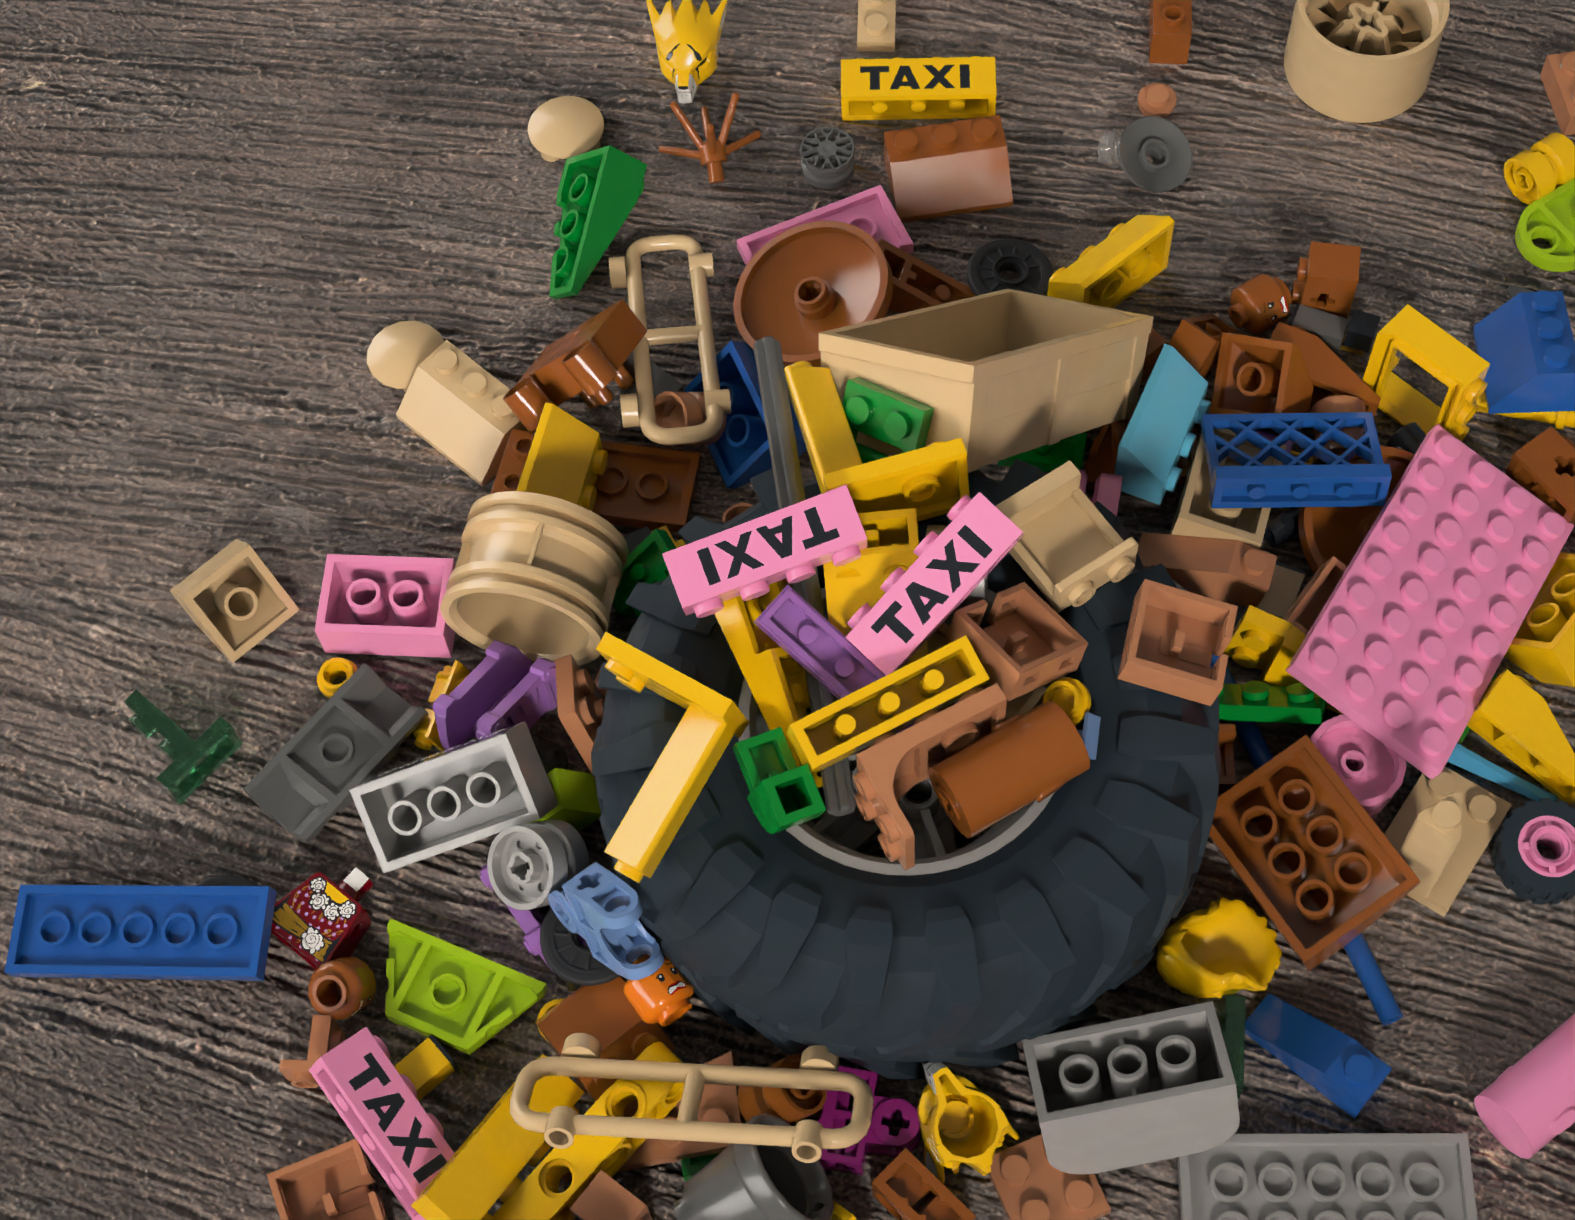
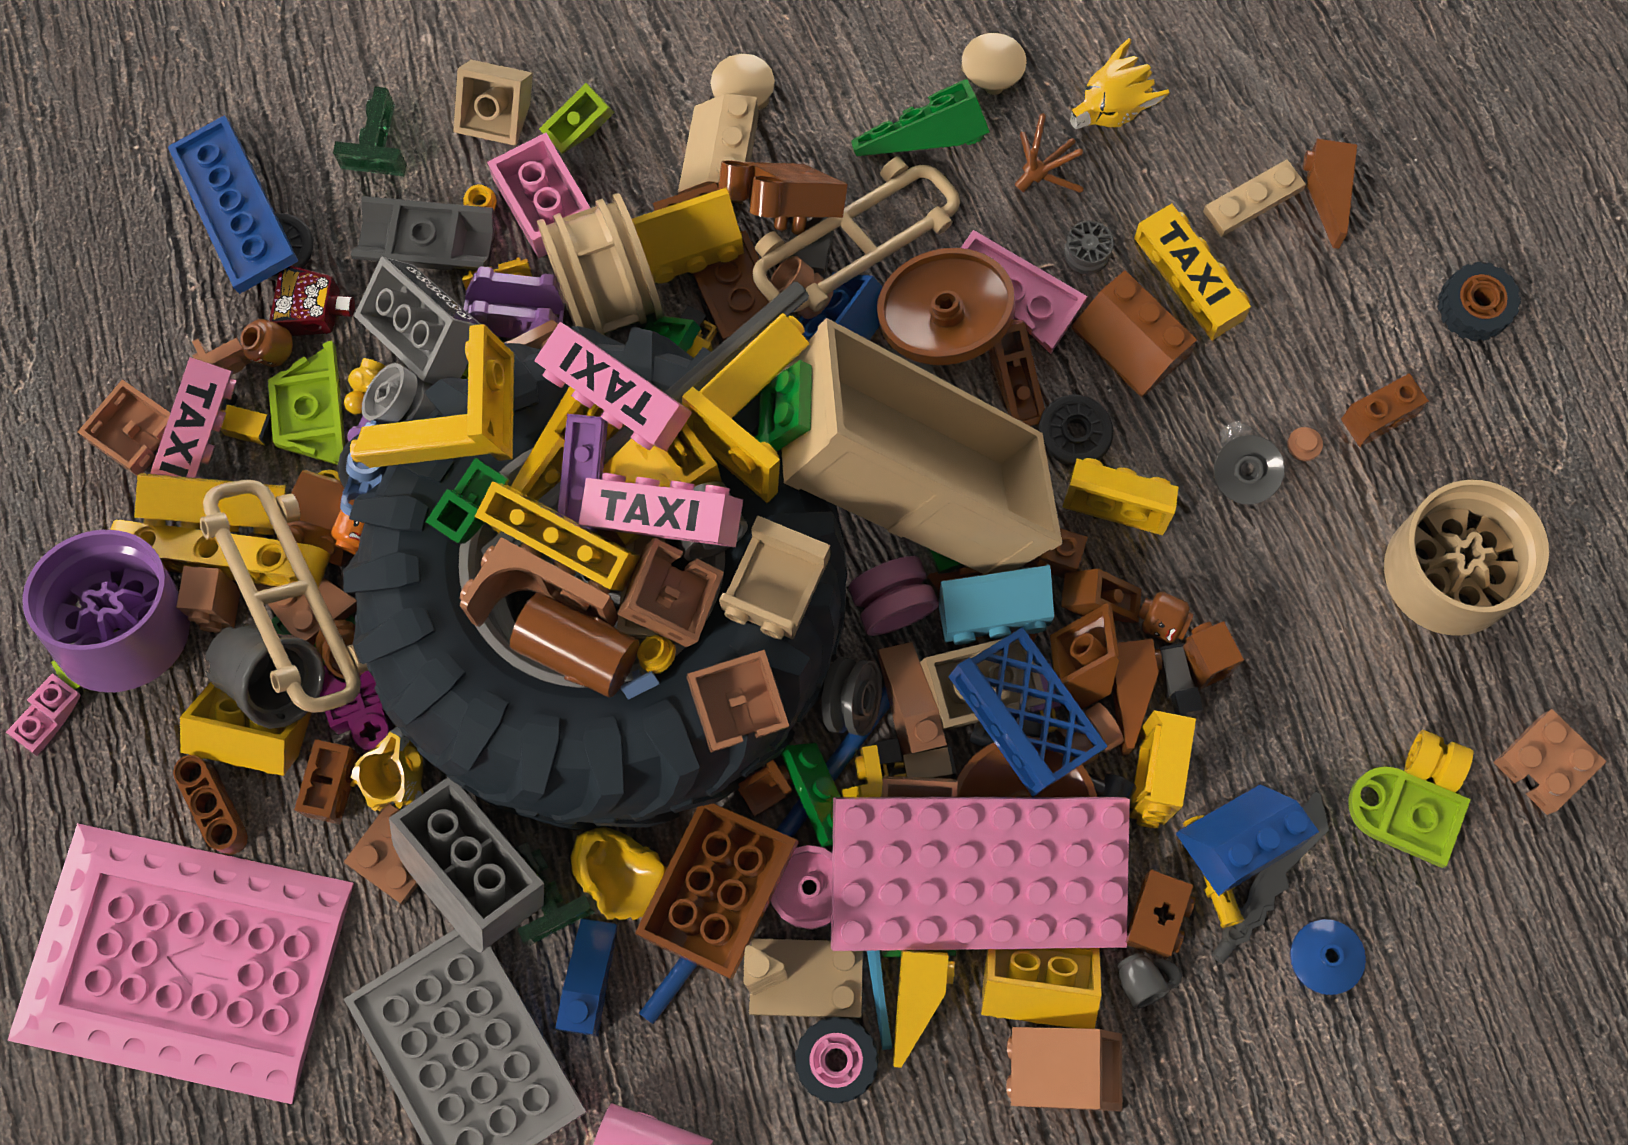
camera: 55 degrees right, 10 degrees up
(327, 519) = (577, 119): none -> lime slope
(466, 906) = (359, 381): none -> yellow animal

